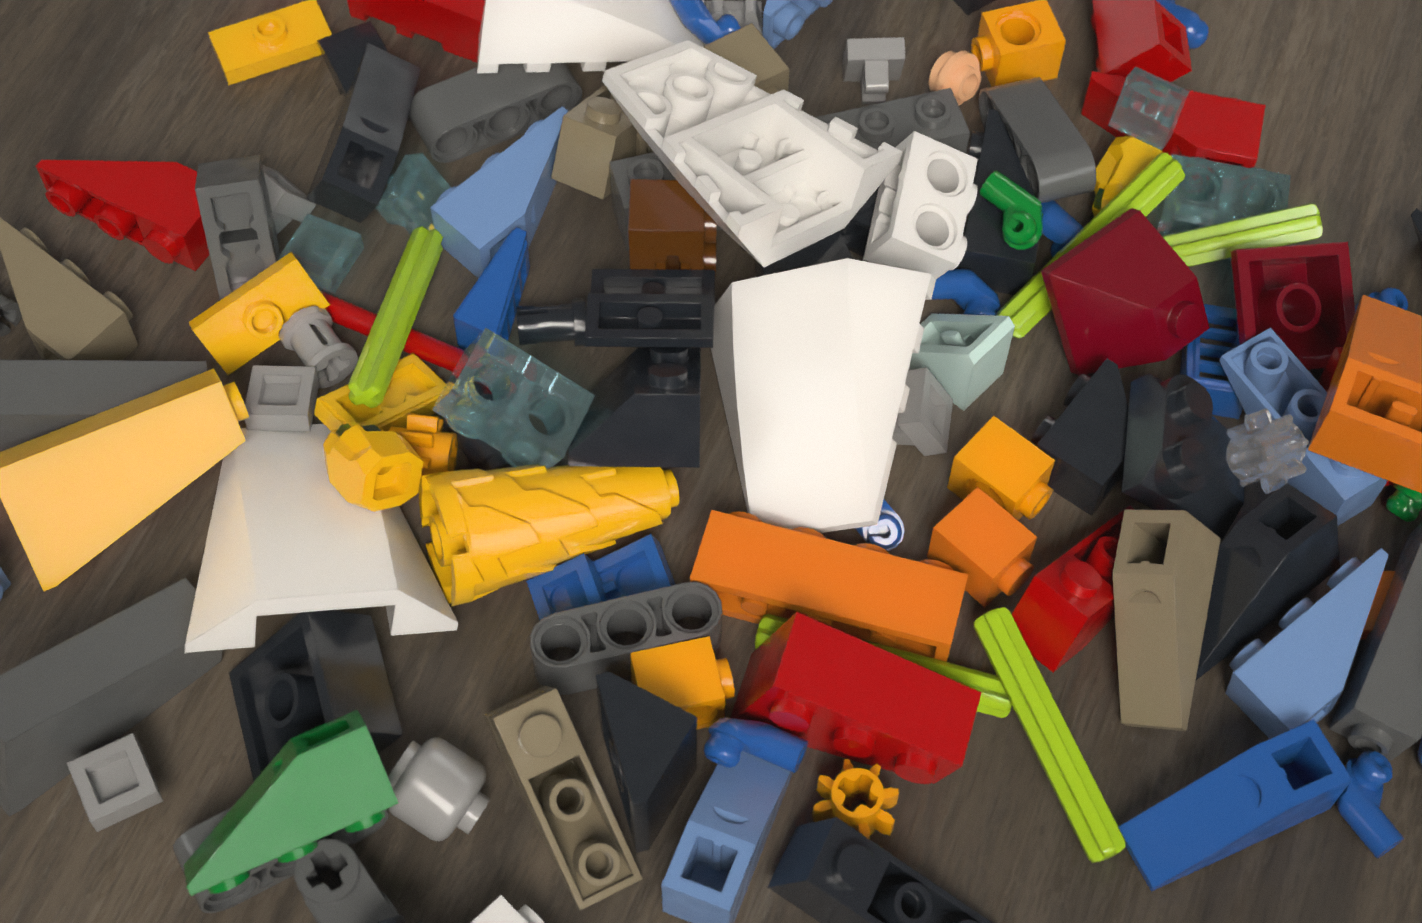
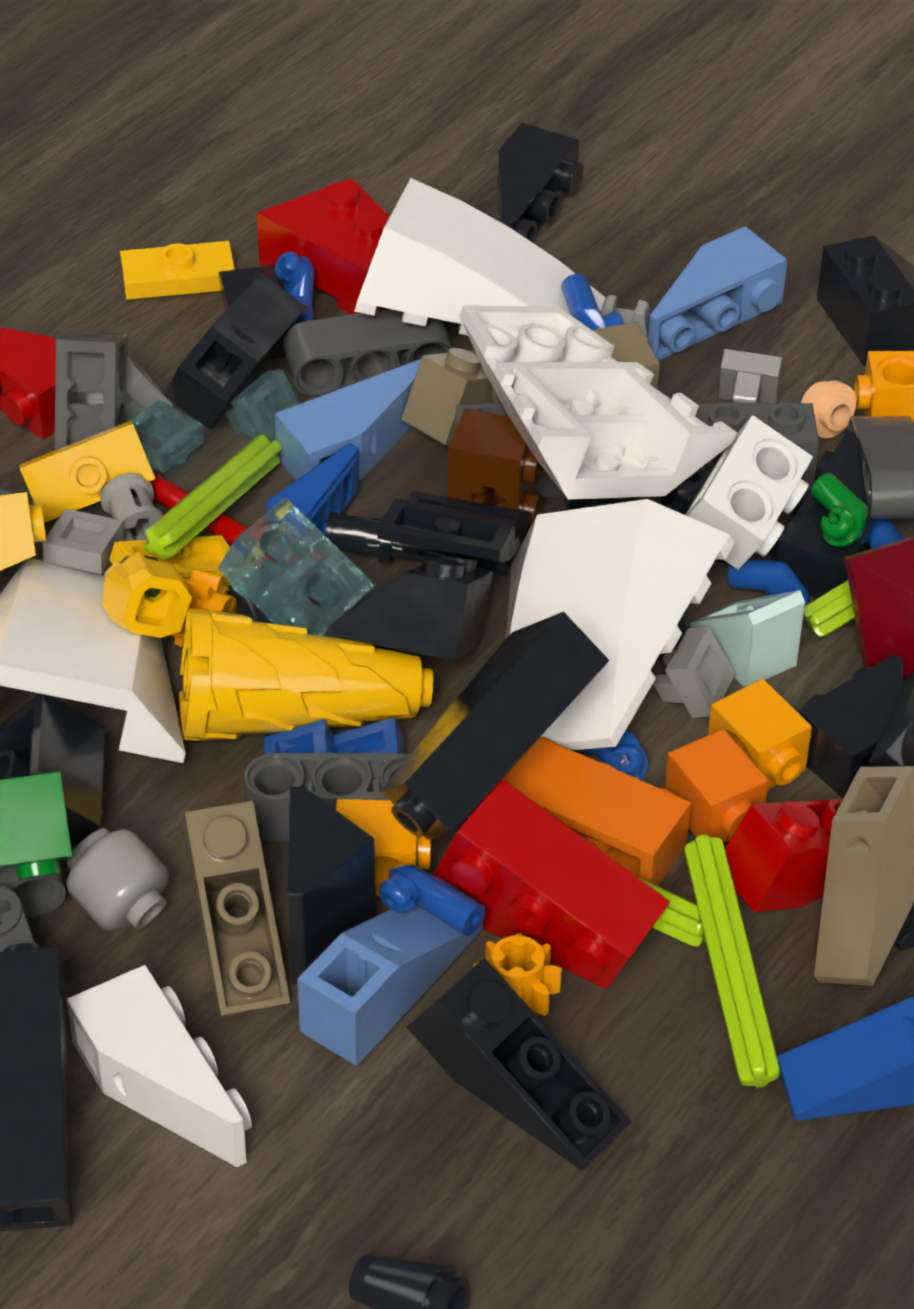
camera: 15 degrees right, 15 degrees down
(401, 39) = (298, 281): none -> blue arm
(770, 551) = (492, 724): none -> black slope

